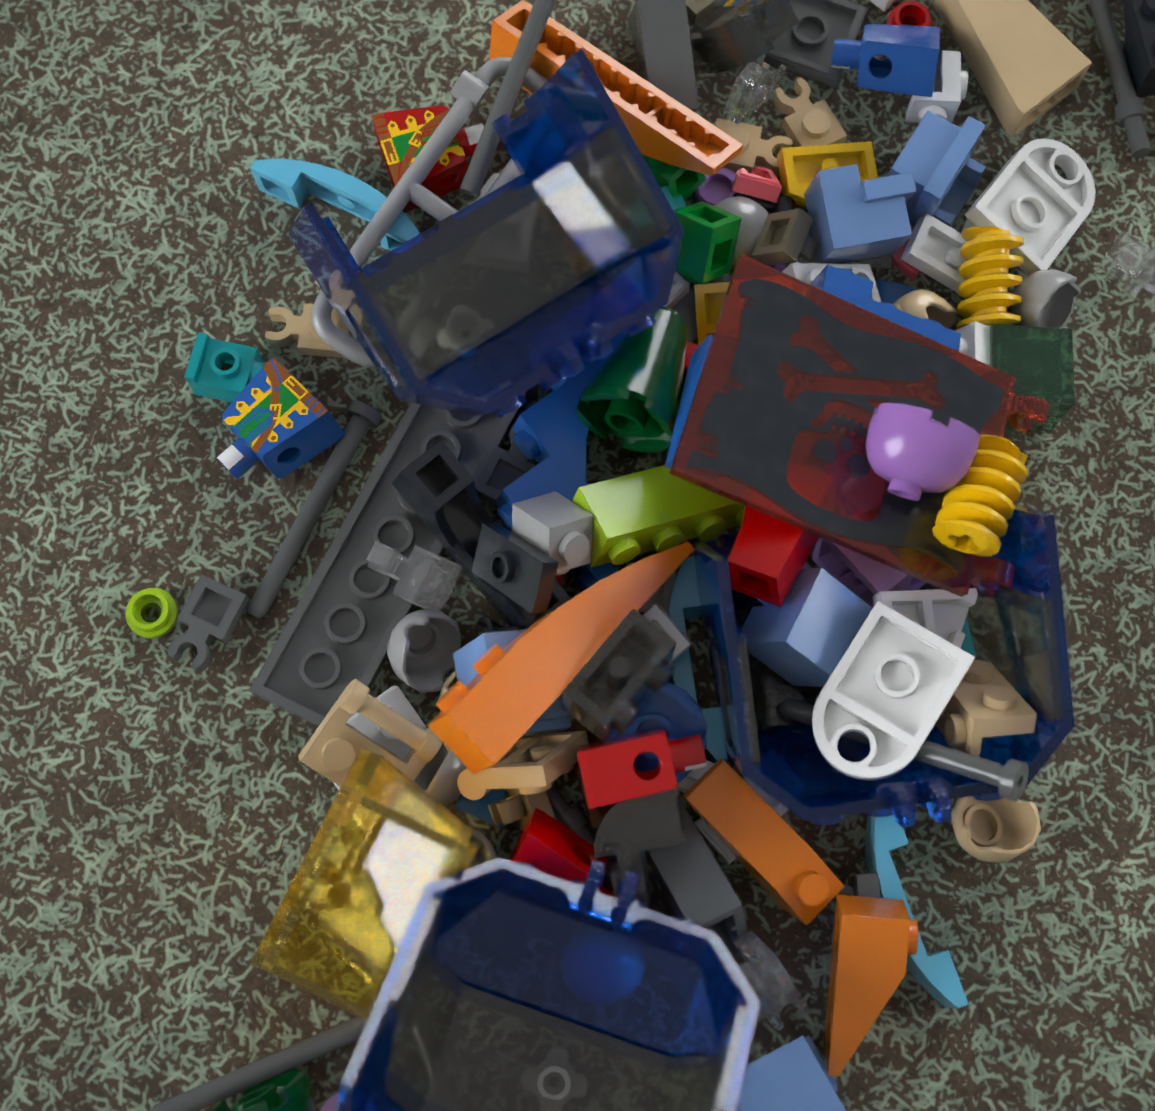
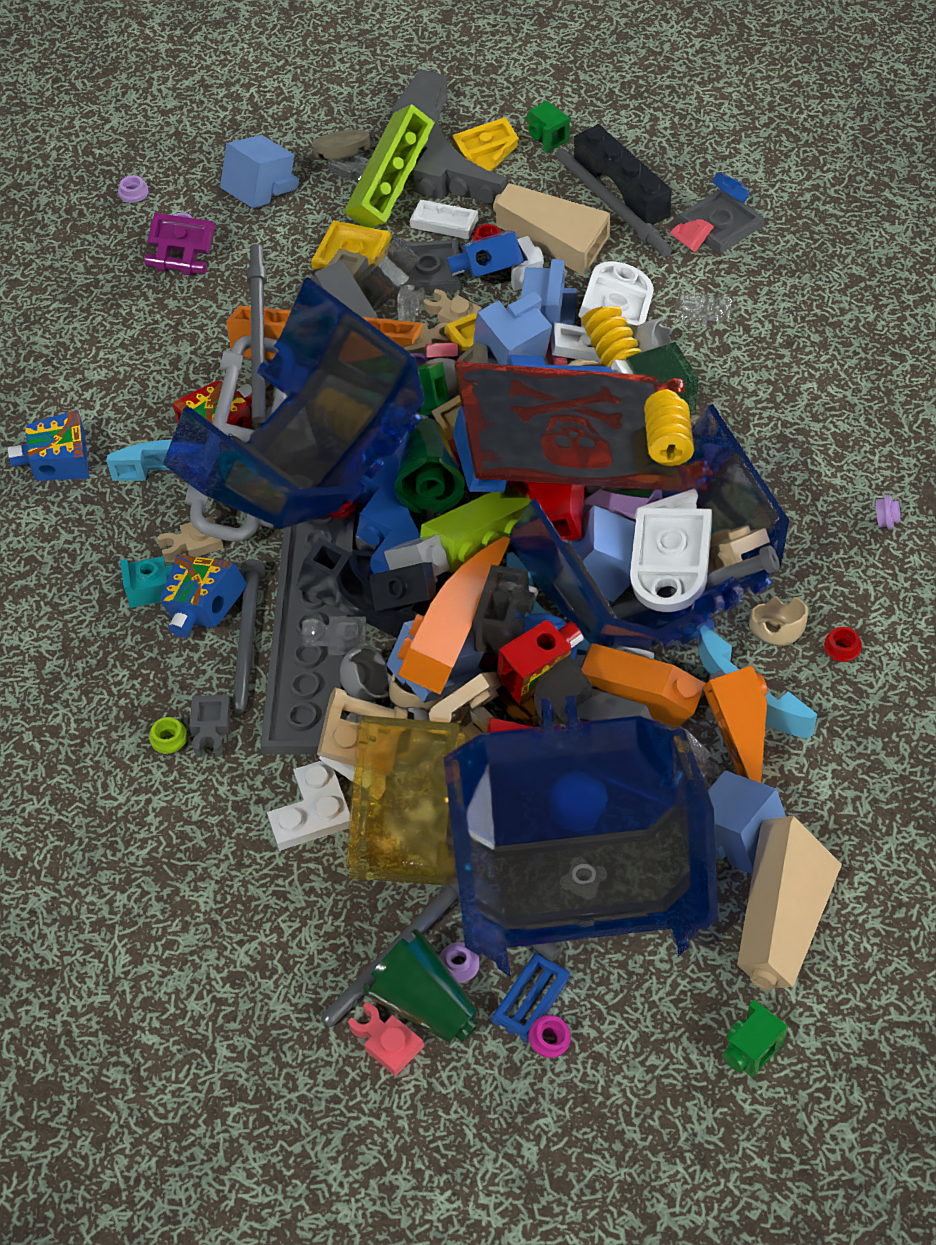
camera: 20 degrees left, 20 degrees down
(203, 113) = (54, 448): none -> blue torso
(278, 818) = (318, 814): none -> white plate
(918, 451) = (616, 412): medium lavender cylinder -> none
(1076, 887) = (843, 636): none -> red plate

